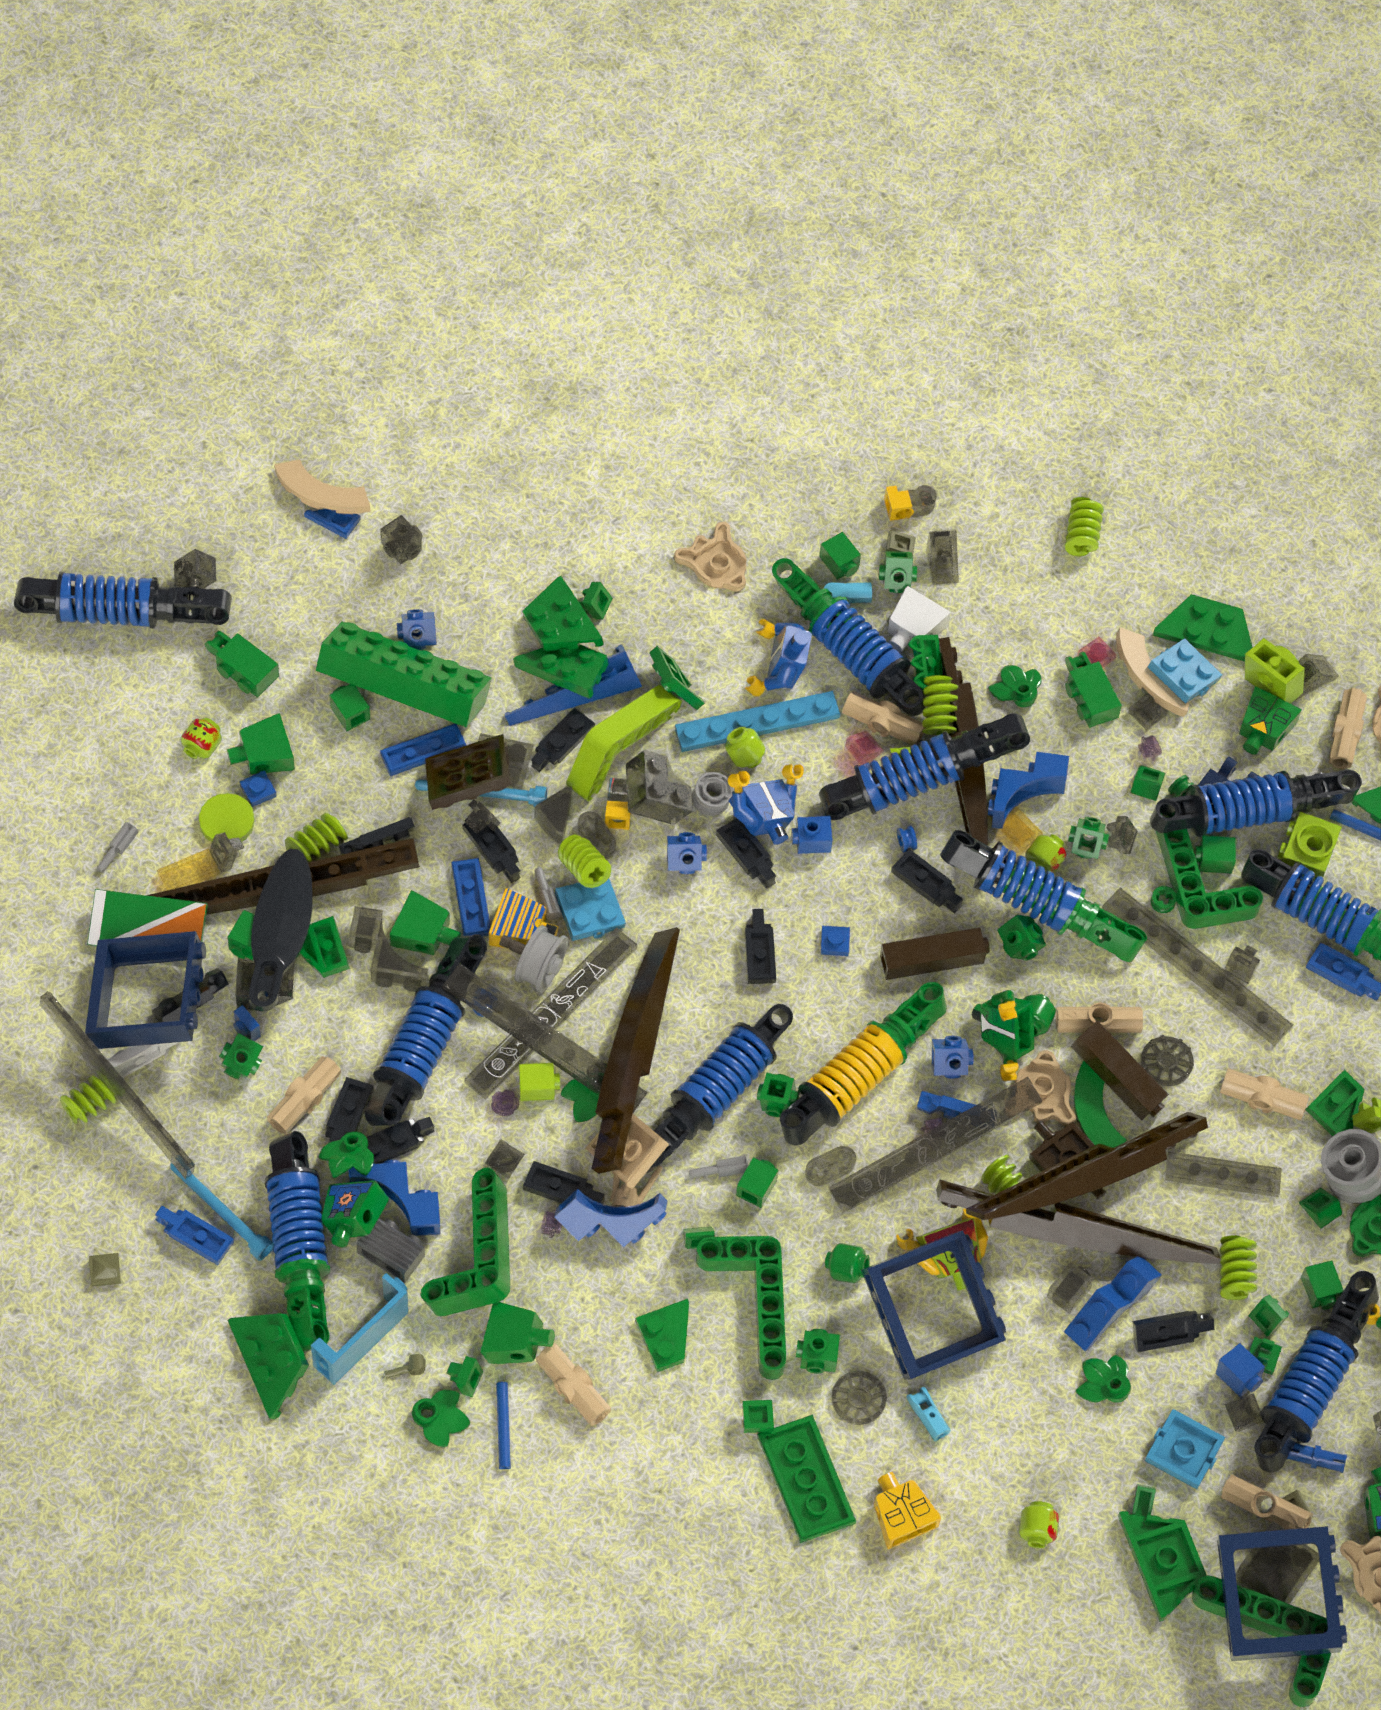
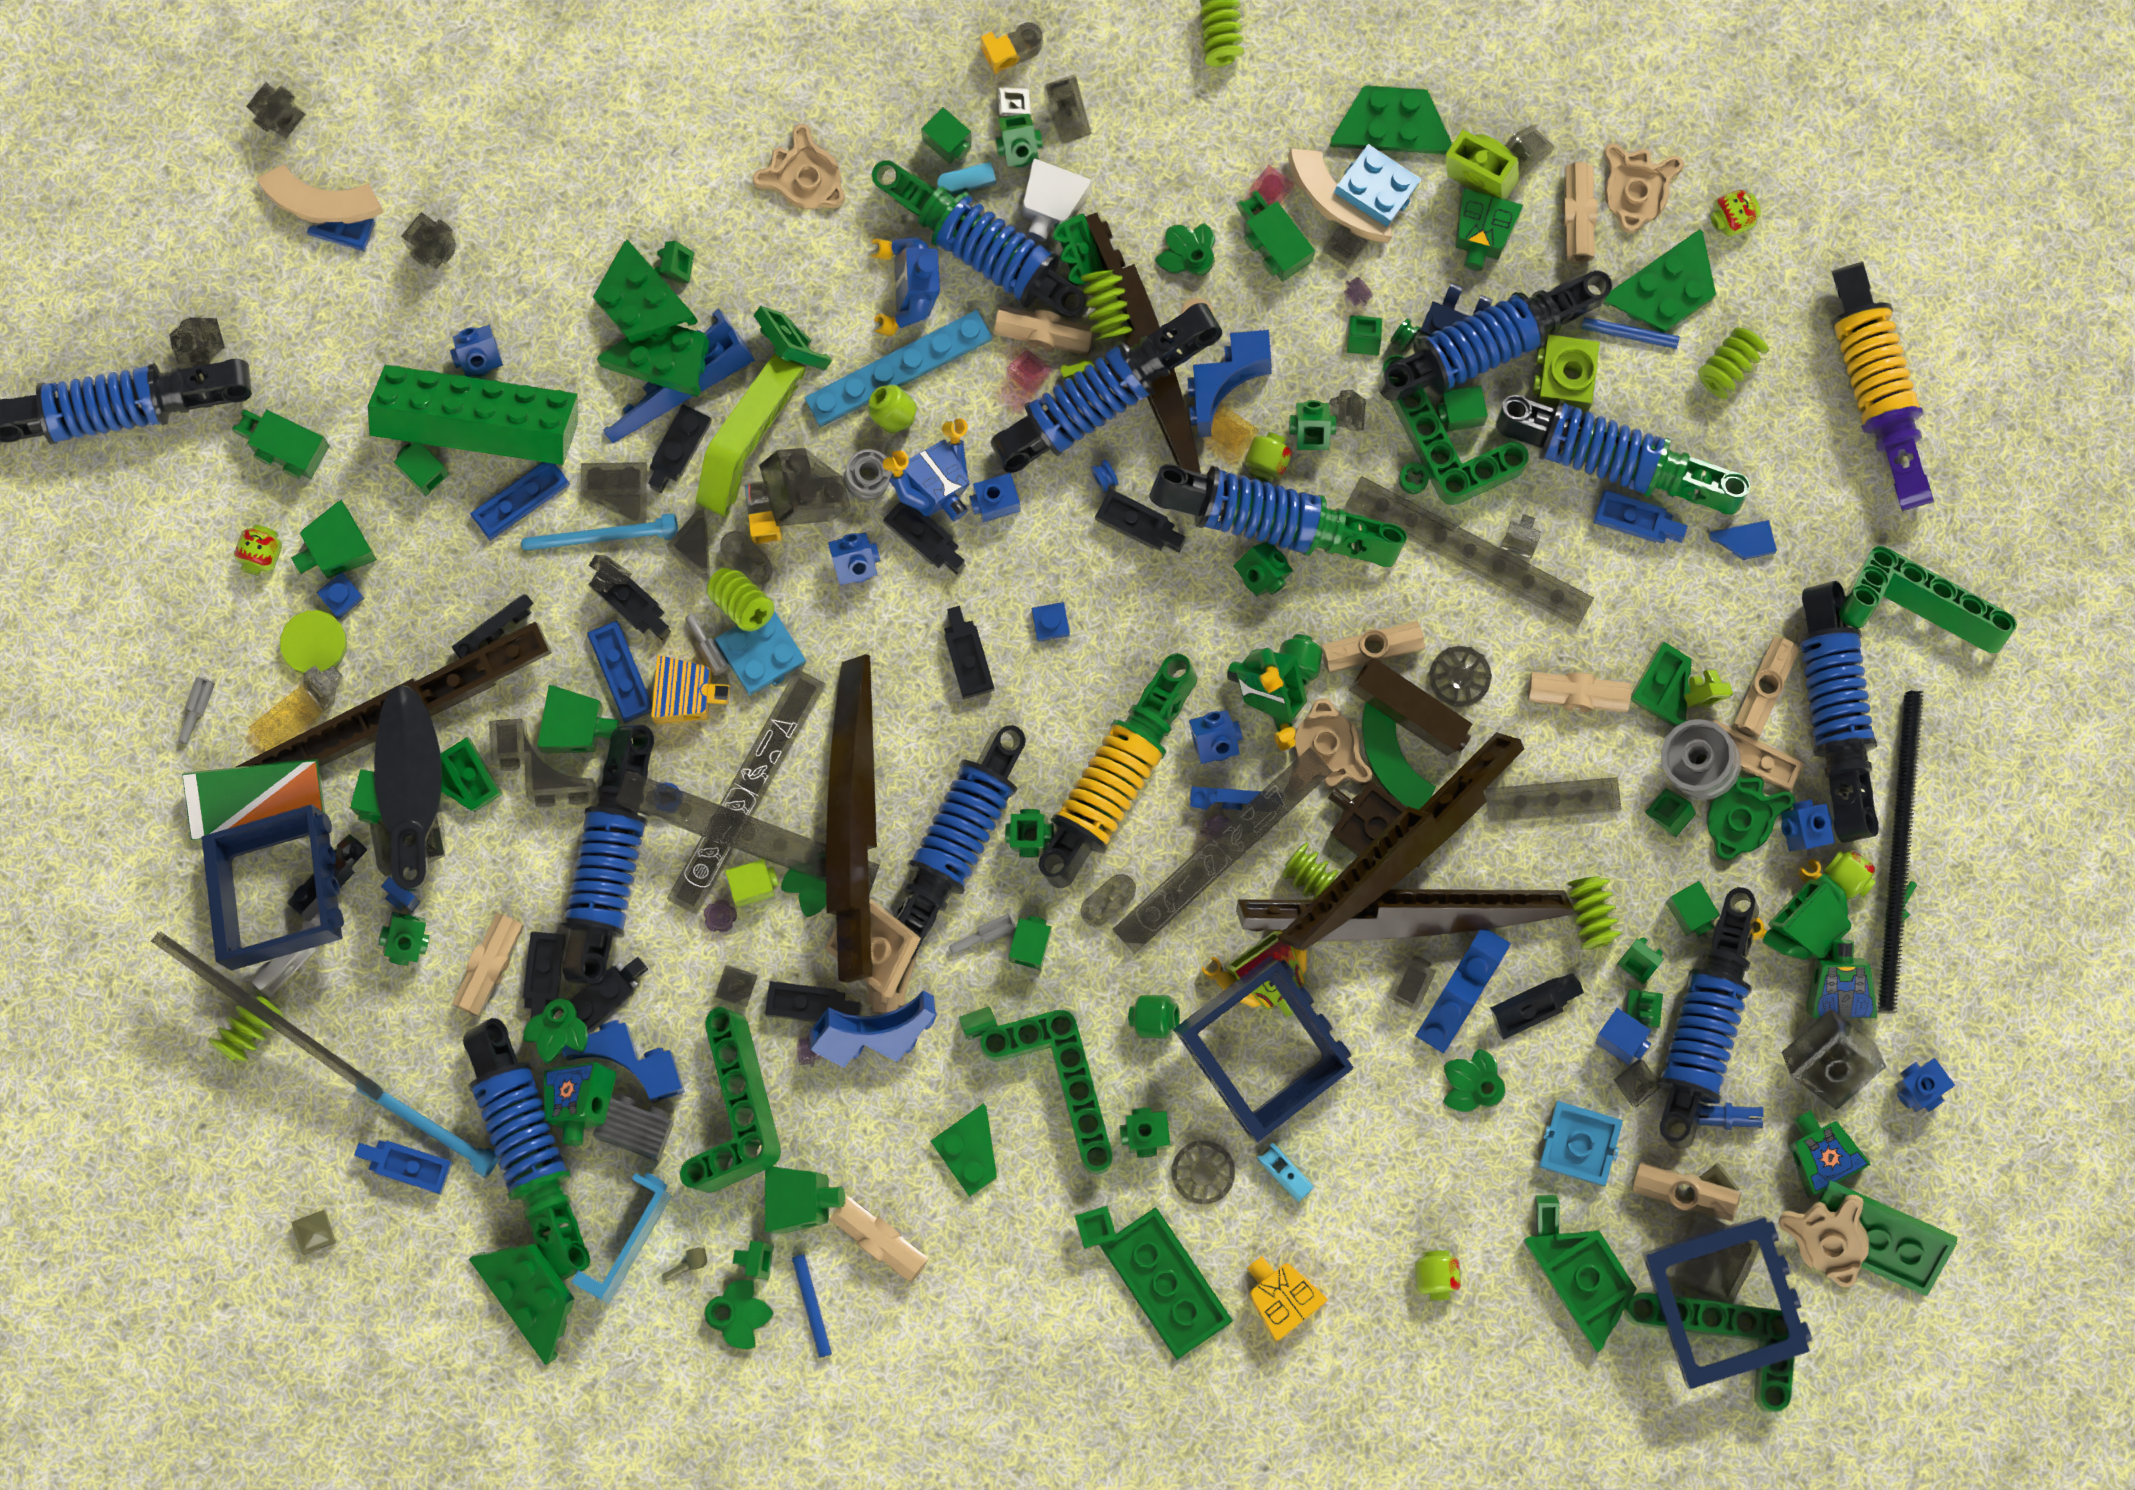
camera: 10 degrees left, 15 degrees up
(302, 411) = (275, 110): none -> clear smoke brick
(317, 836) = (422, 645): lime piece -> none
(468, 772) = (578, 523): dark brown plate -> none
(539, 958) = (717, 734): light grey wheel -> none
(934, 953) = (1167, 611): dark brown brick -> none

